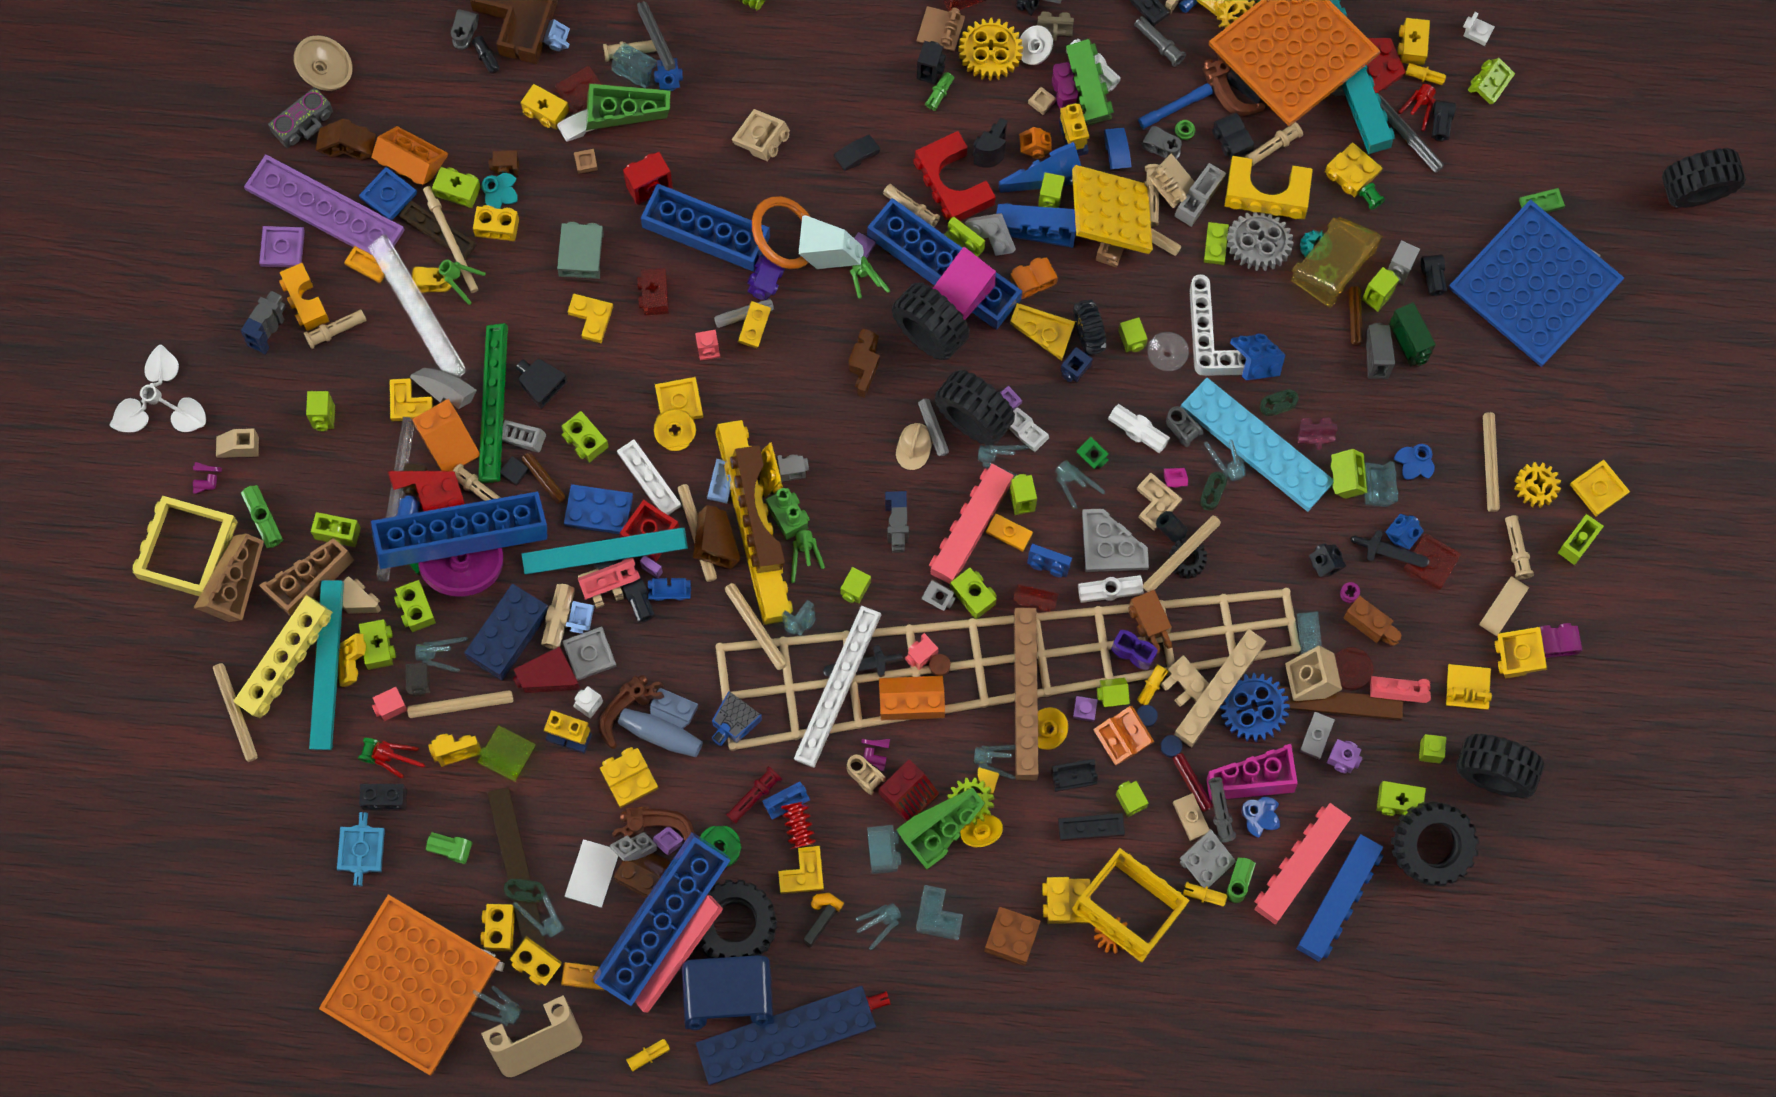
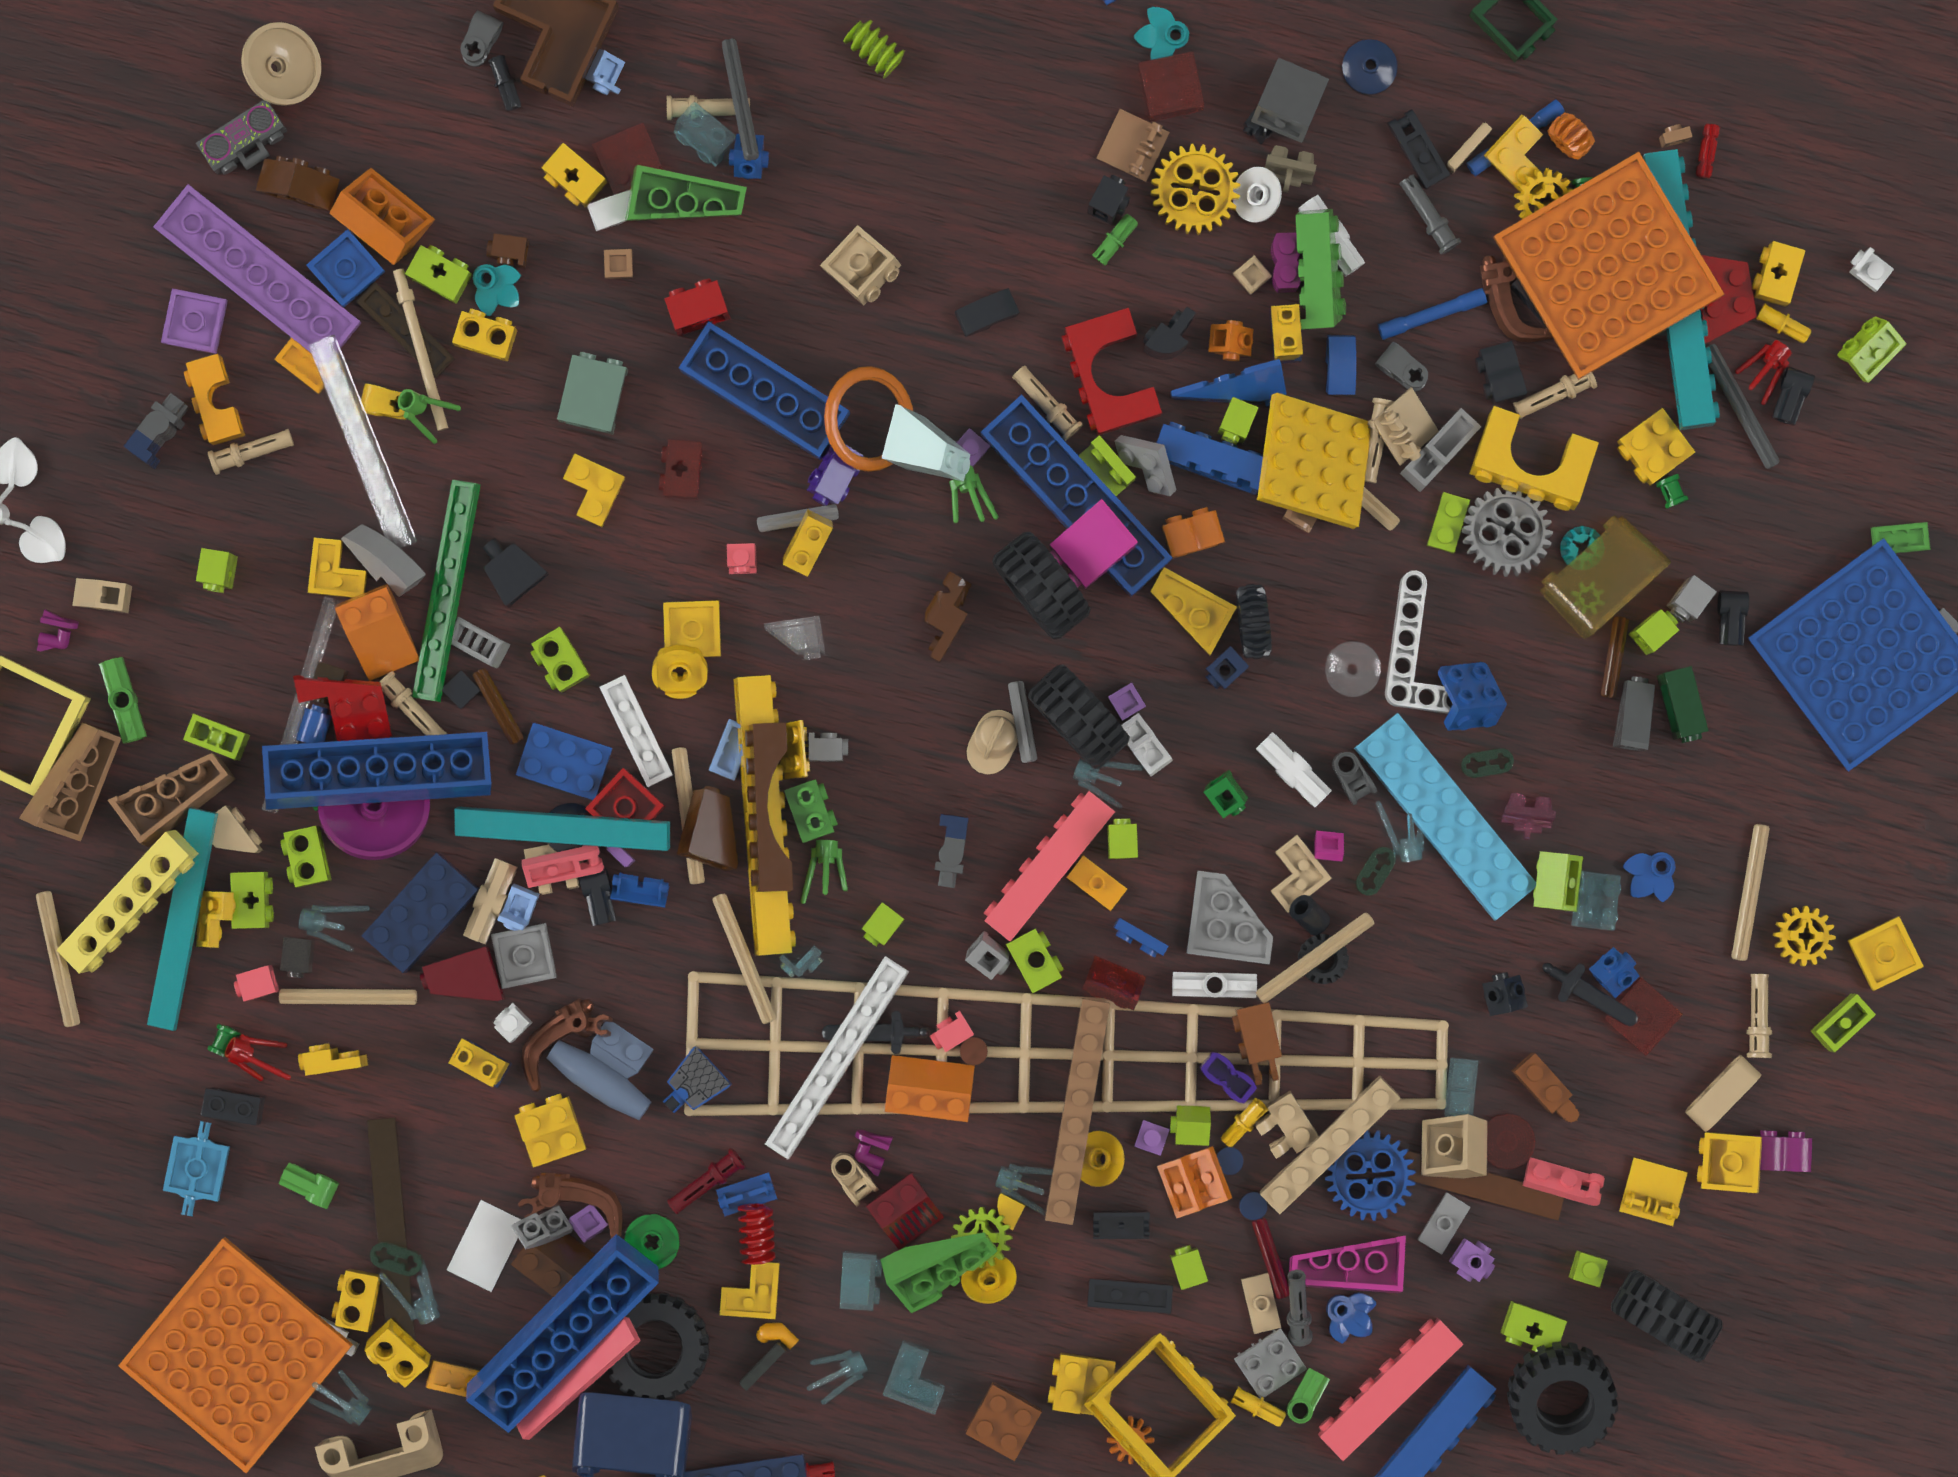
camera: 10 degrees right, 15 degrees up
(506, 753) = (398, 1072): clear neon green hinge -> none
(757, 389) = (800, 635): none -> clear slope
(1069, 472) = (1188, 814): clear light blue plant -> none
(1133, 335) = (1310, 638): lime brick -> none
(1185, 124) = (1438, 342): bright green plate -> none
(1353, 586) = (1532, 1045): magenta bush -> none

